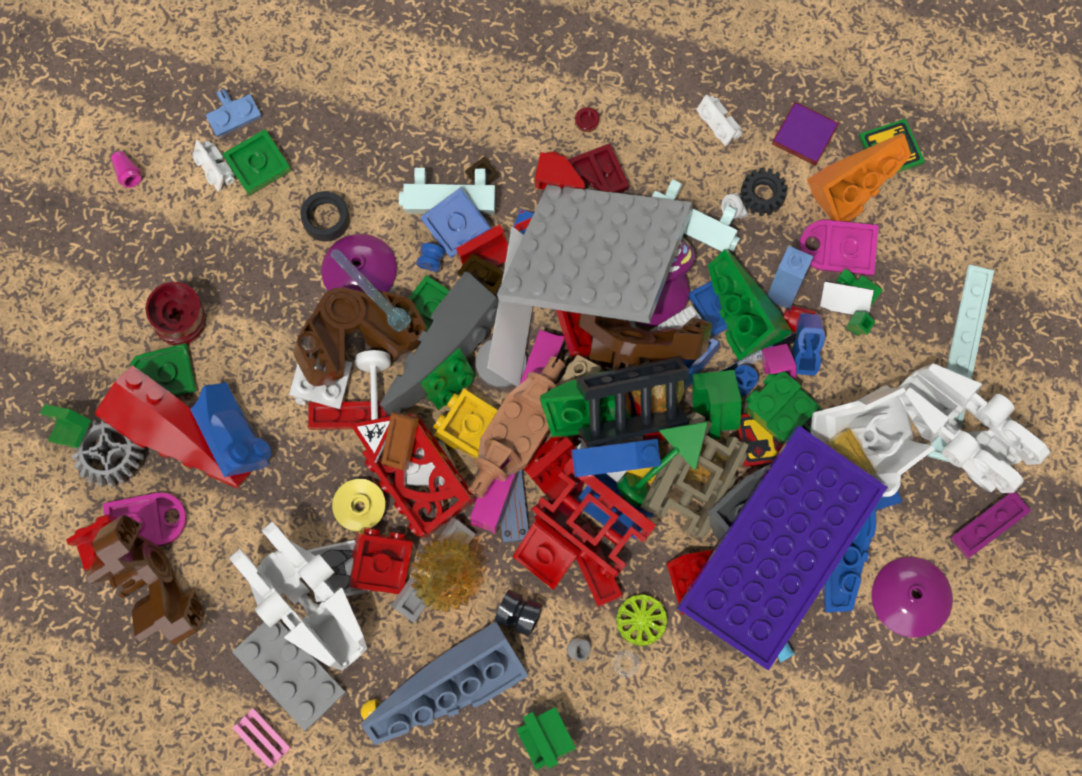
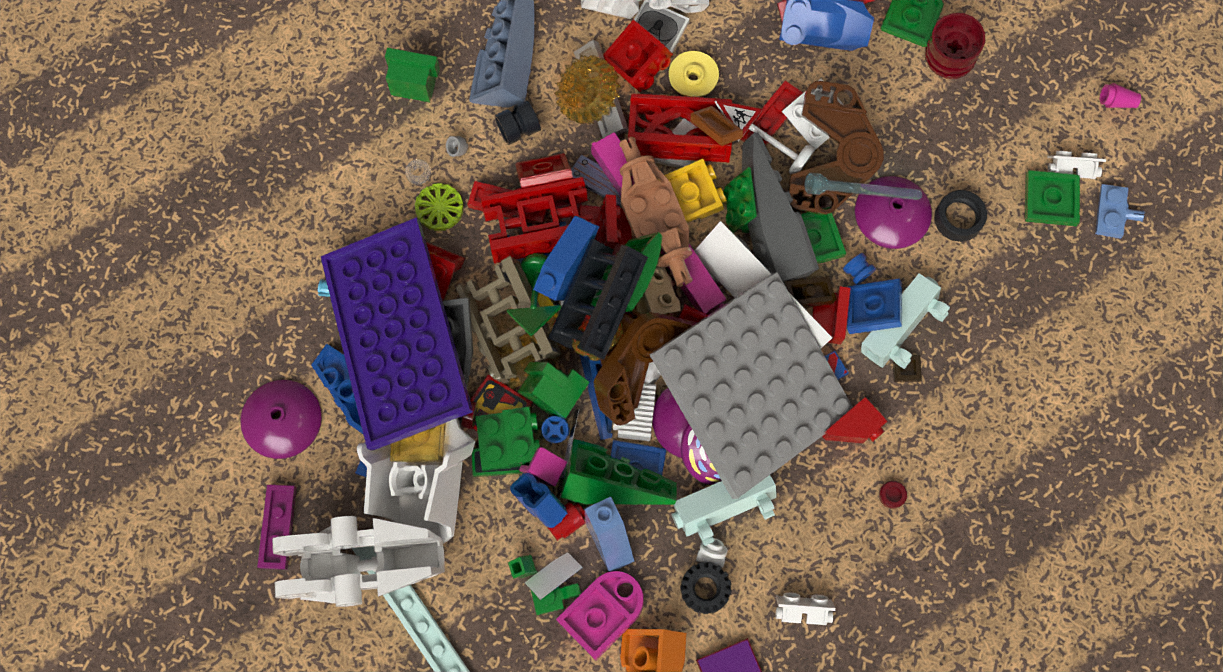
camera: 125 degrees right, 0 degrees up
(601, 170) = (833, 466): dark red wing -> none

